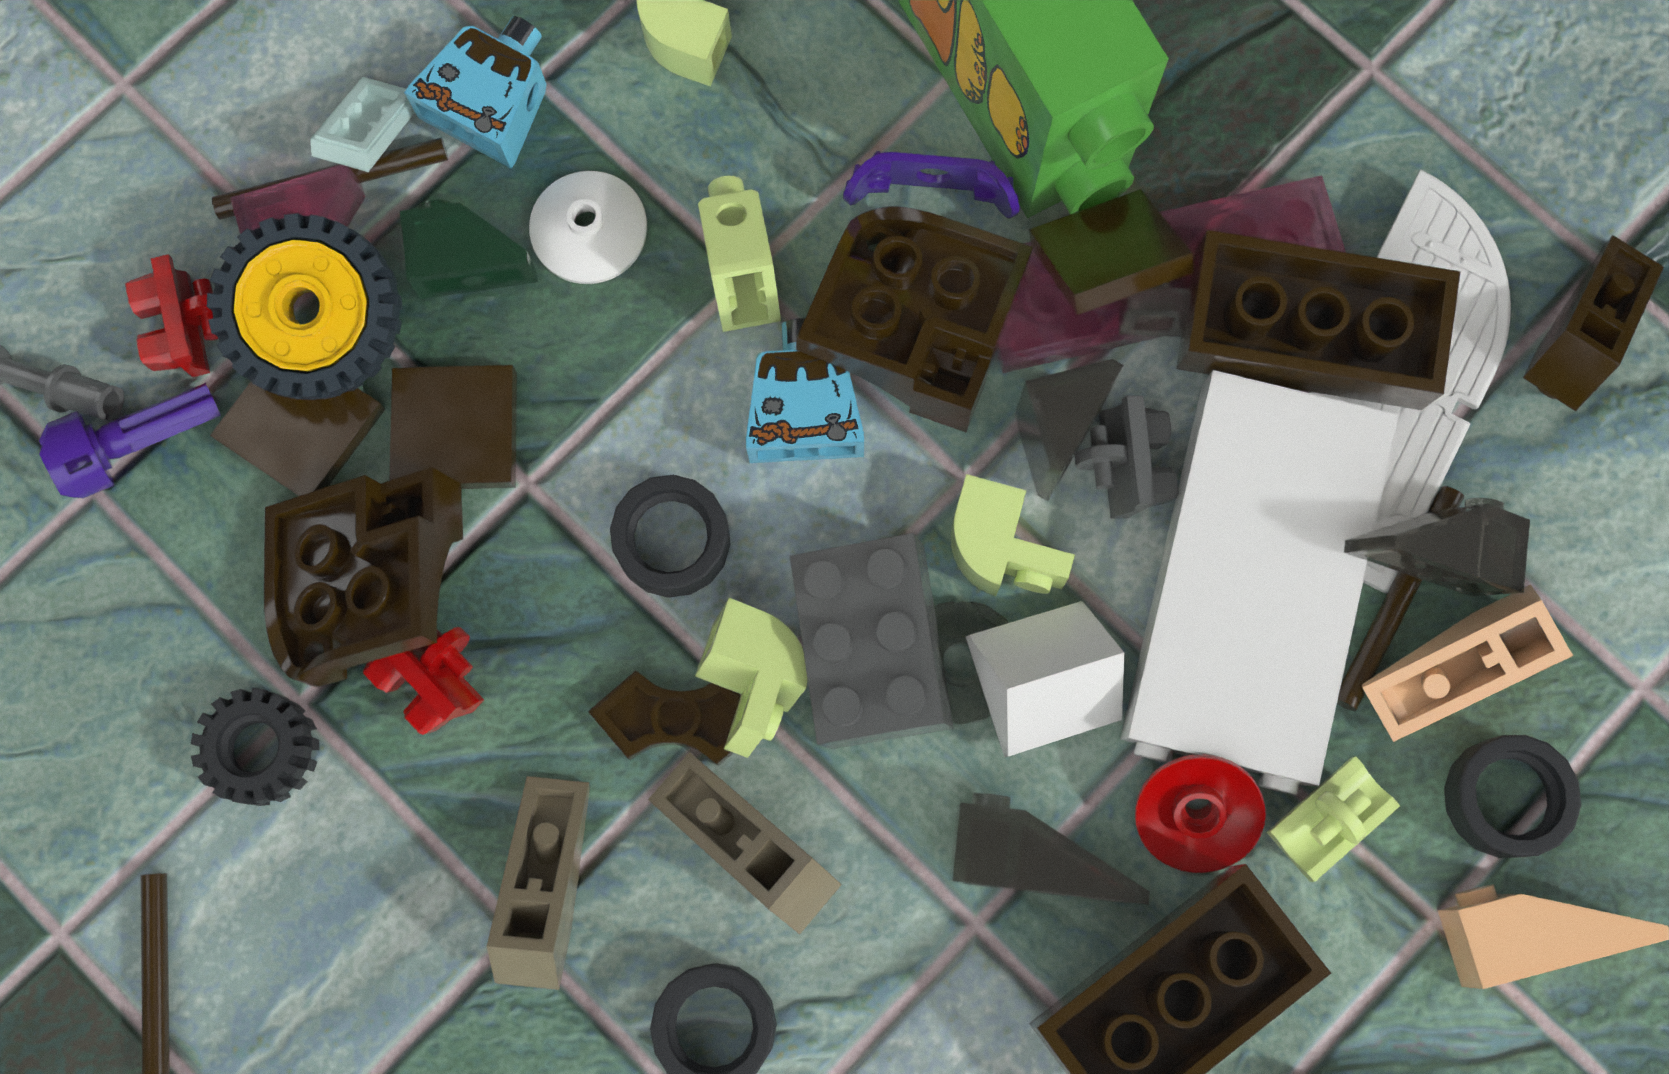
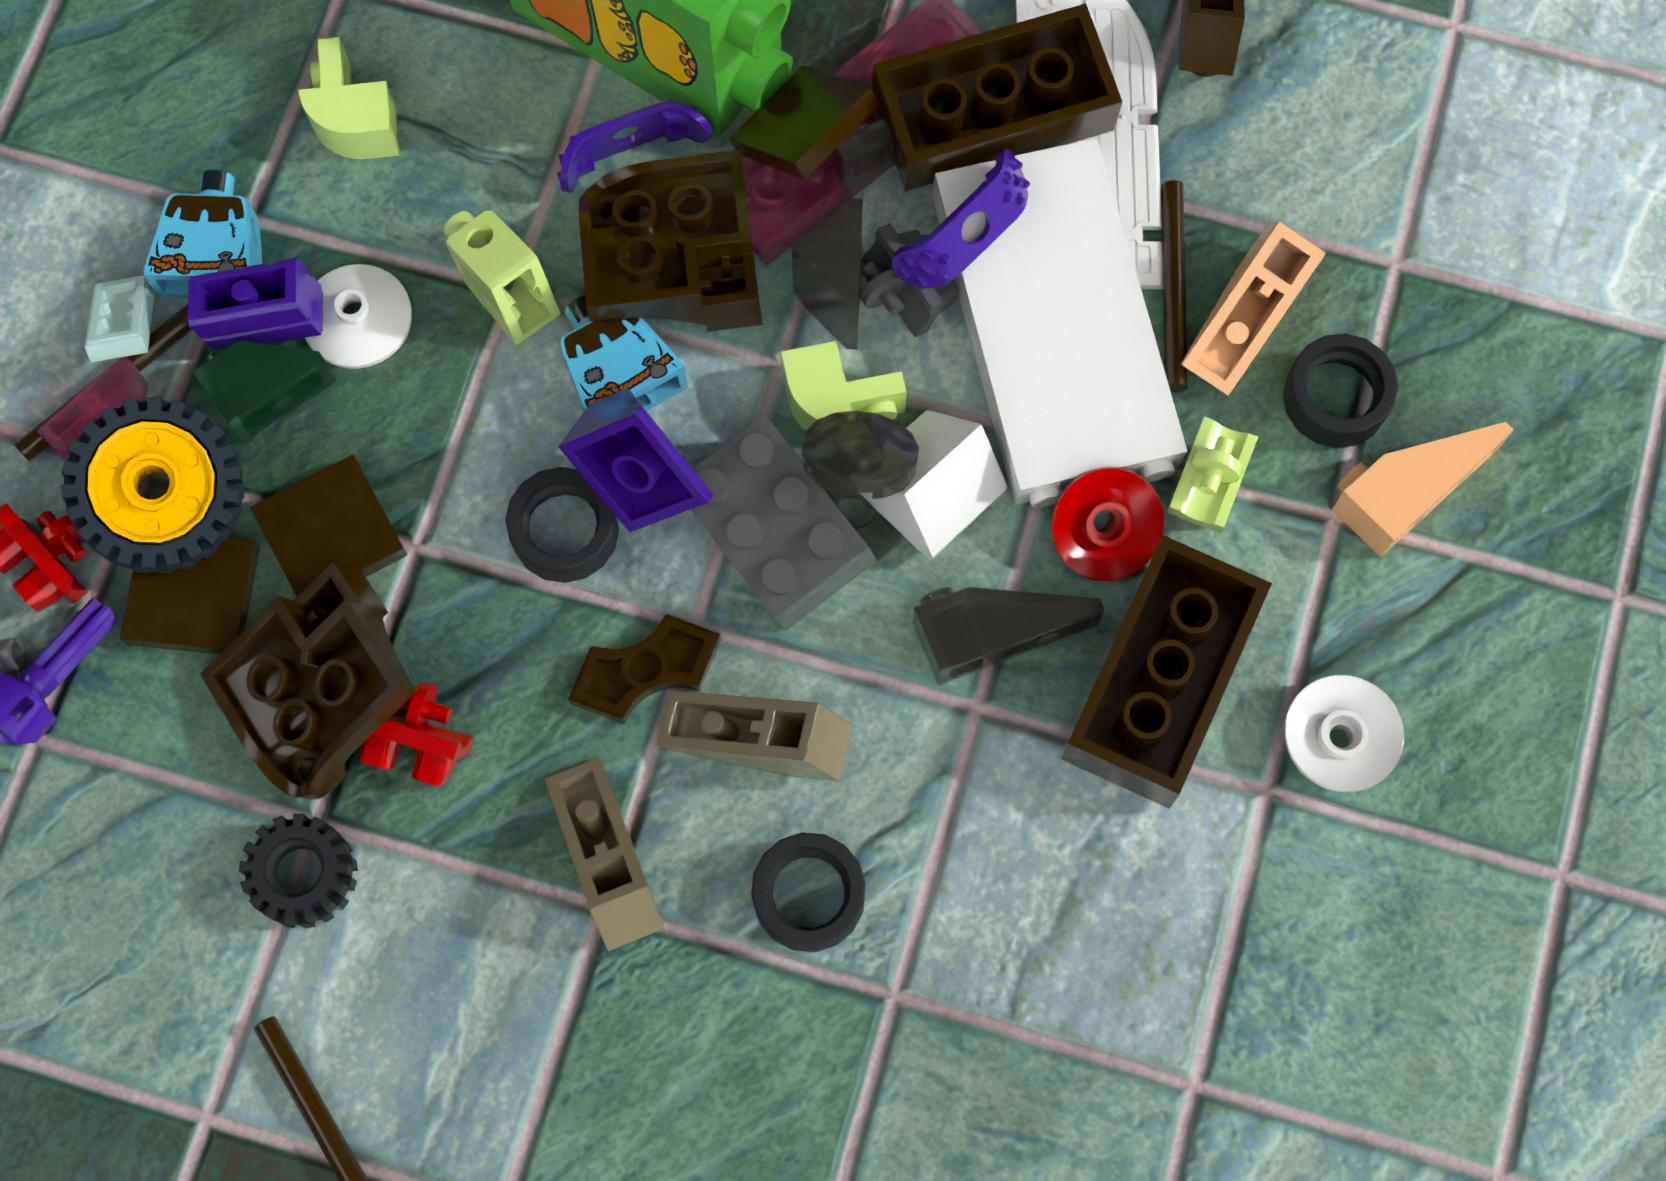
camera: 30 degrees left, 5 degrees down
(492, 174) = (256, 304): none -> dark purple brick
(761, 662) = (693, 585): yellowish green brick -> none
(762, 515) = (632, 462): none -> dark purple slope
(1002, 602) = (886, 442): none -> clear smoke tile
(1180, 459) = (944, 253): none -> dark purple piece
(1461, 548) = (1201, 221): clear smoke slope -> none

